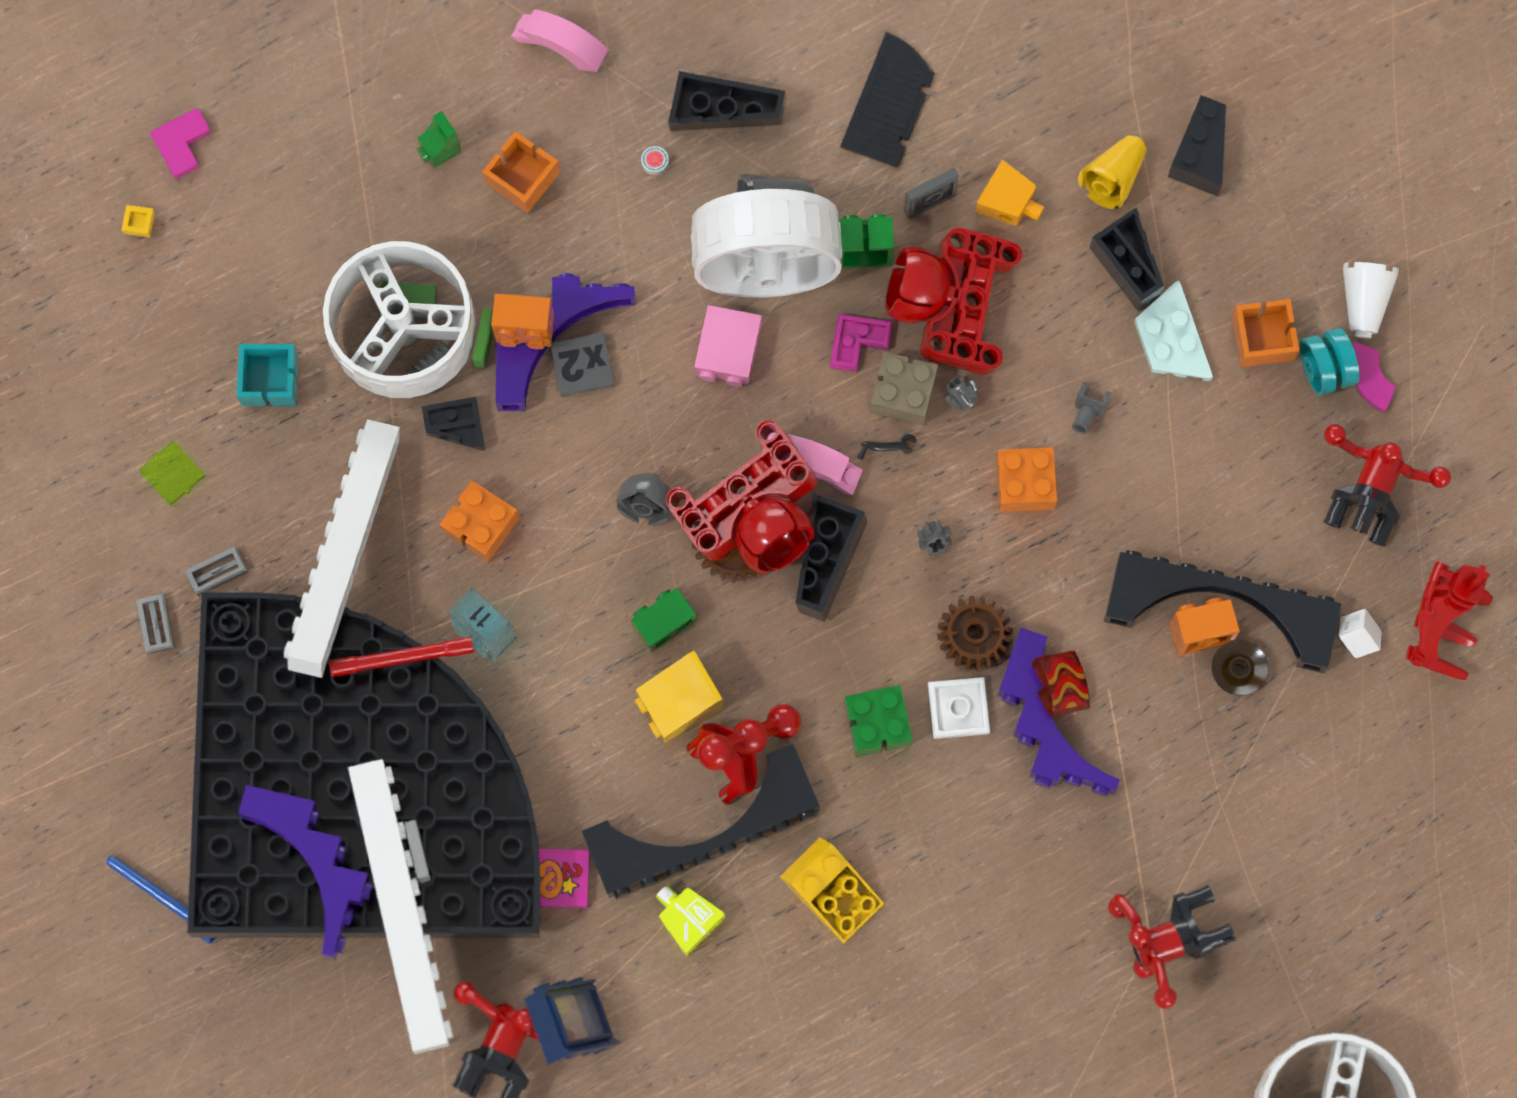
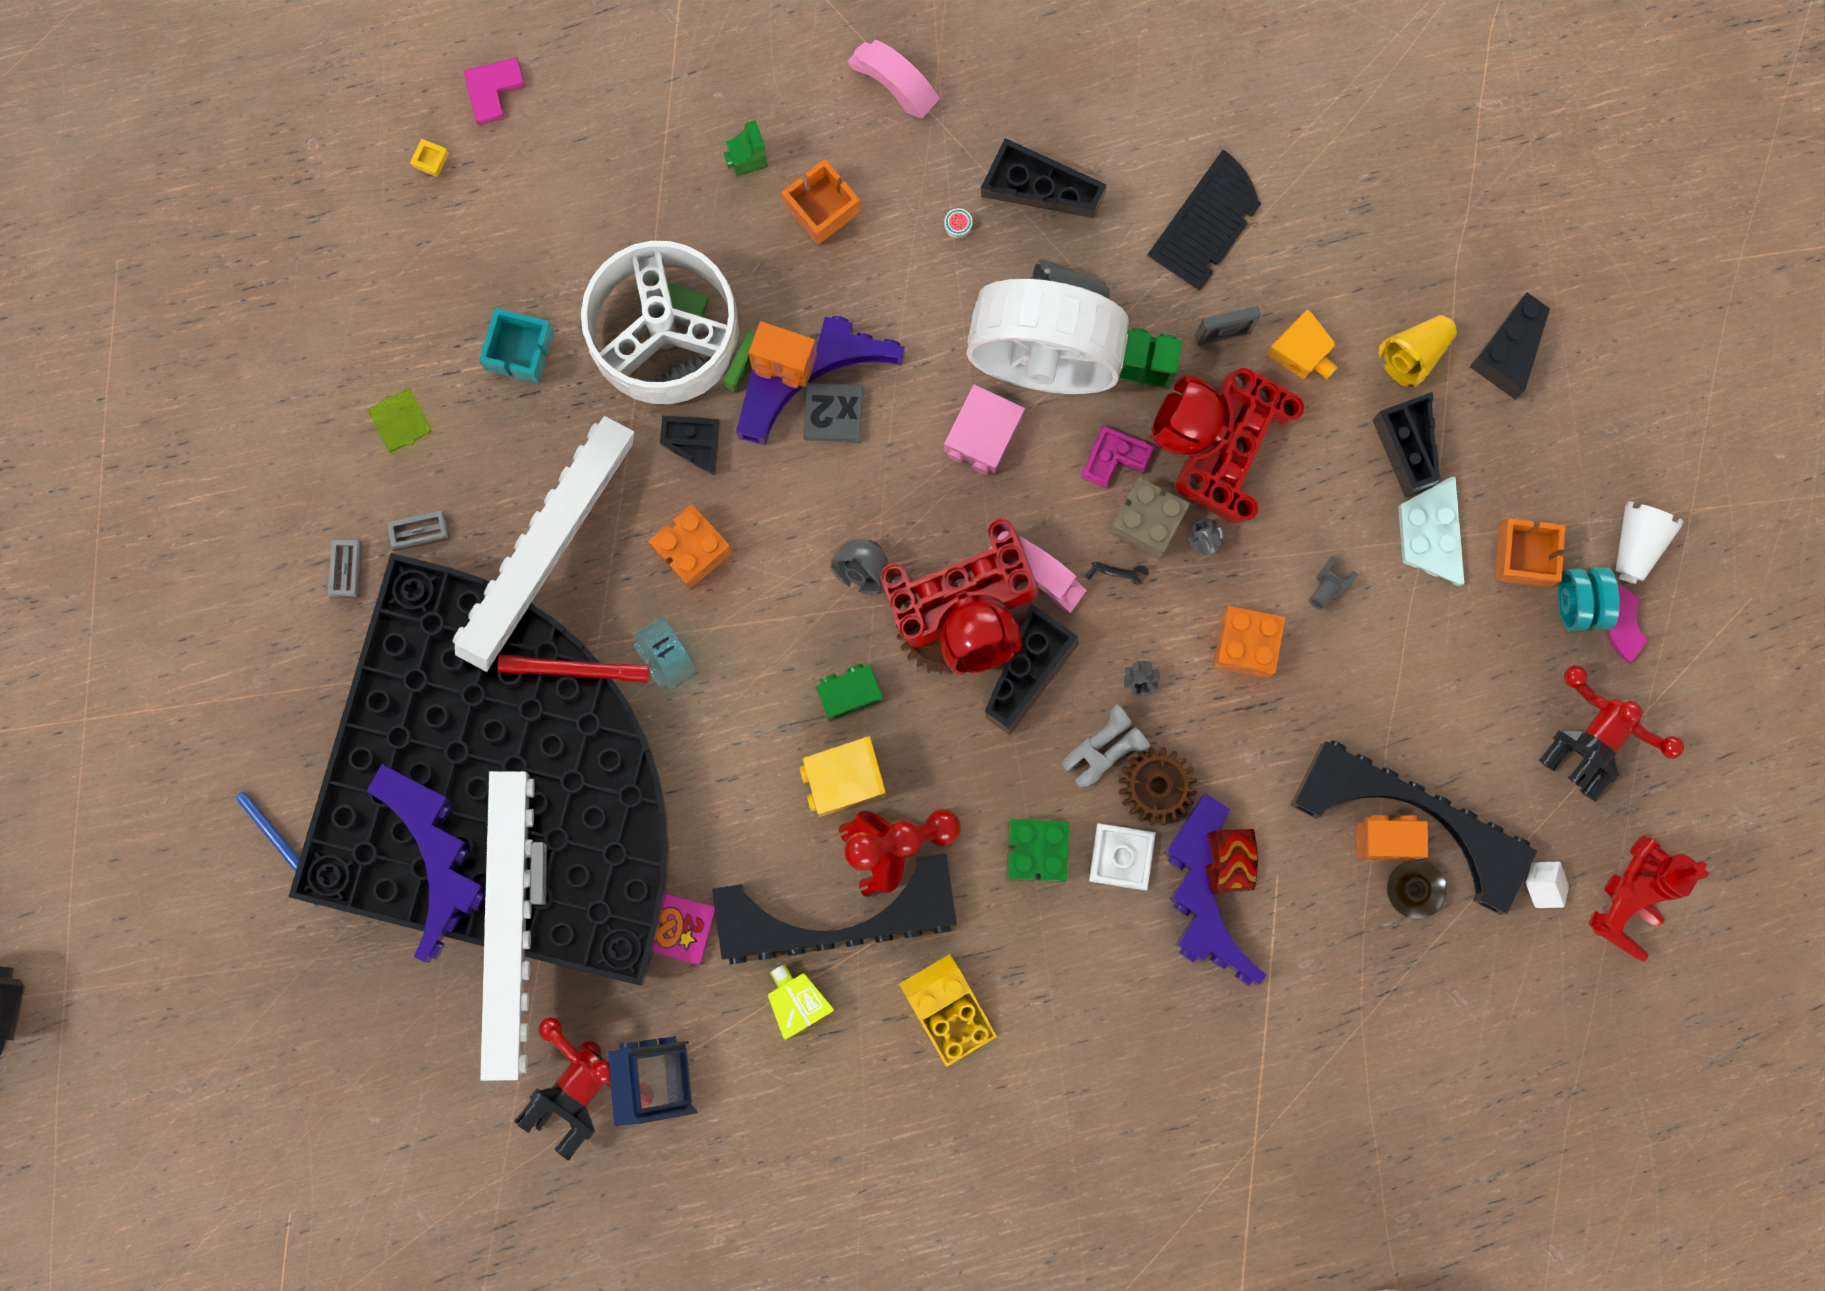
camera: 10 degrees right, 5 degrees up
(923, 585) = (1099, 762): none -> light grey piece
(1169, 940) = (1277, 1153): wheel -> none

